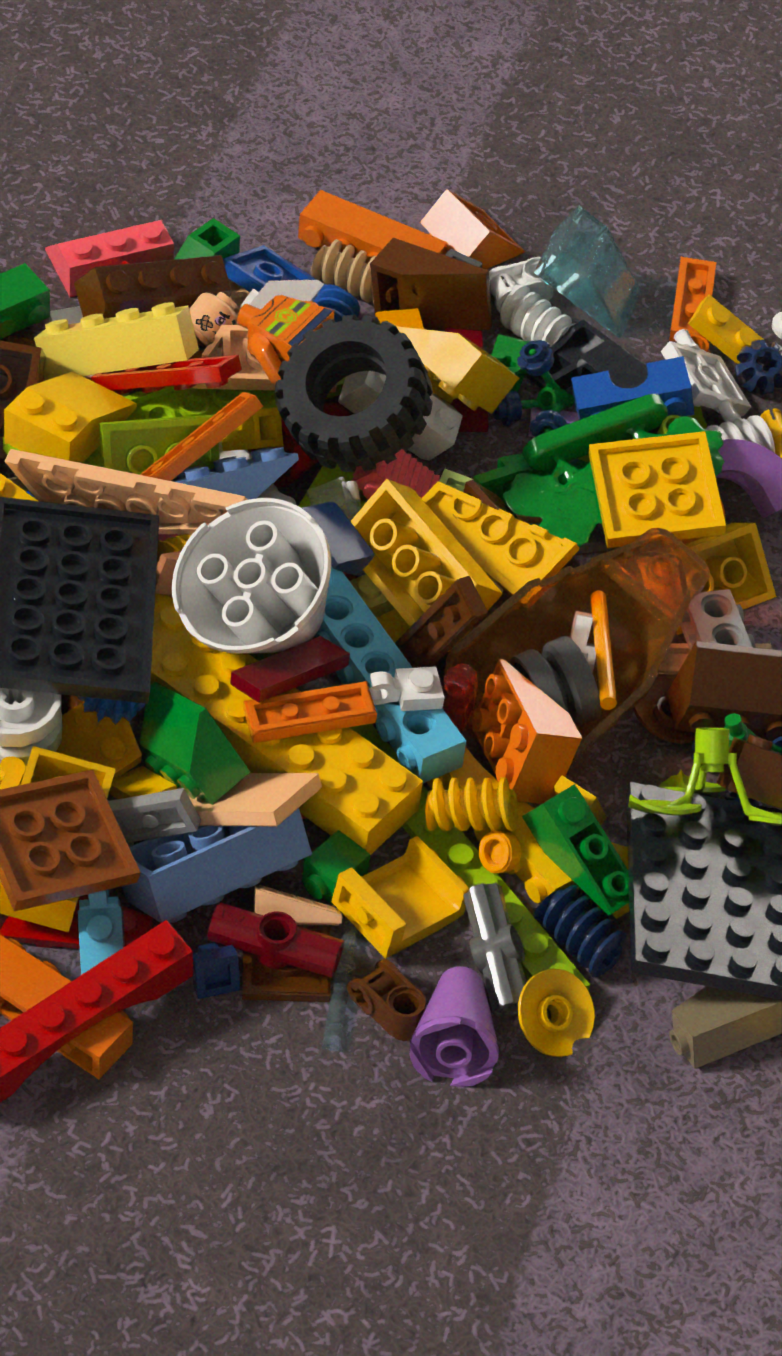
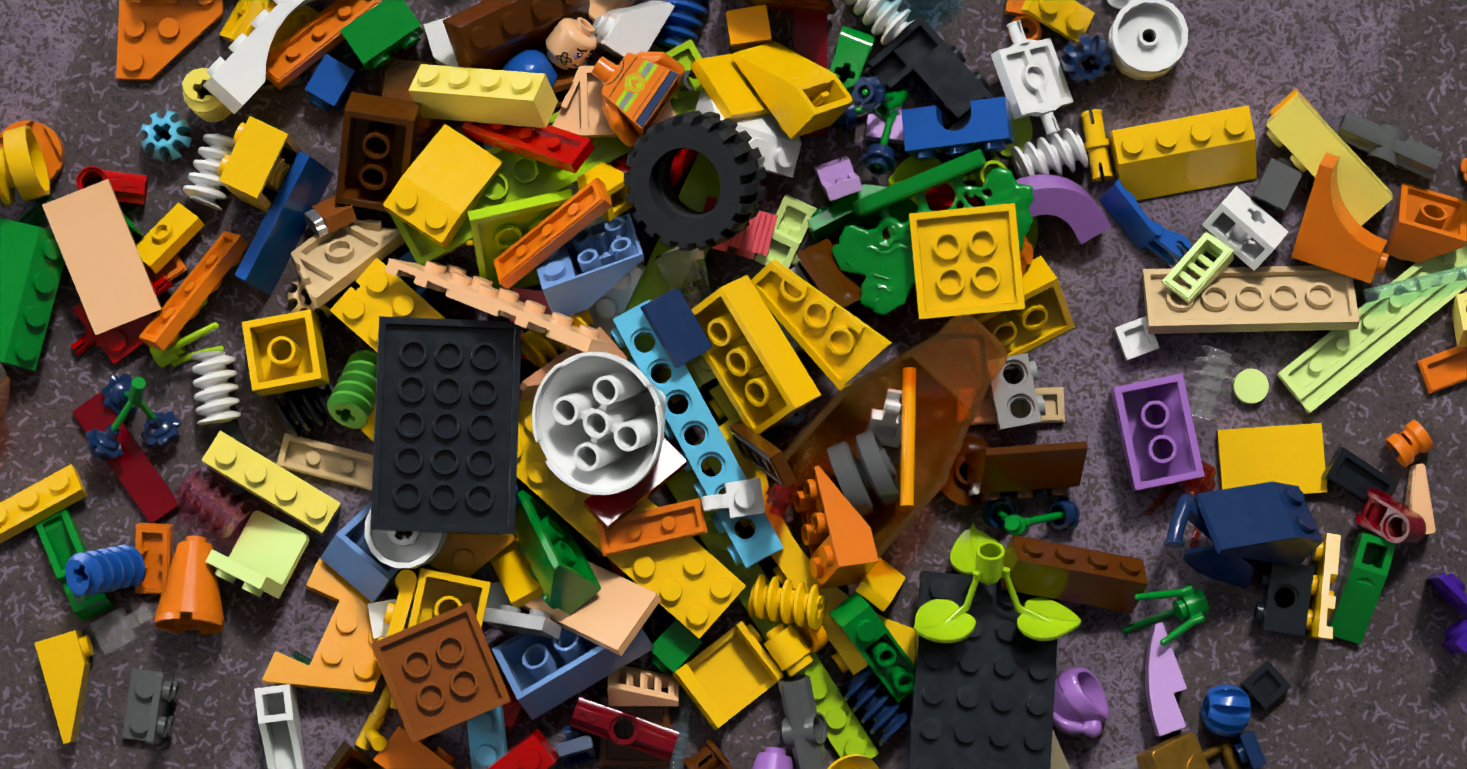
camera: 10 degrees right, 35 degrees up
(473, 858) = (788, 648): none -> yellow brick
(502, 445) = (838, 178): none -> lavender slope

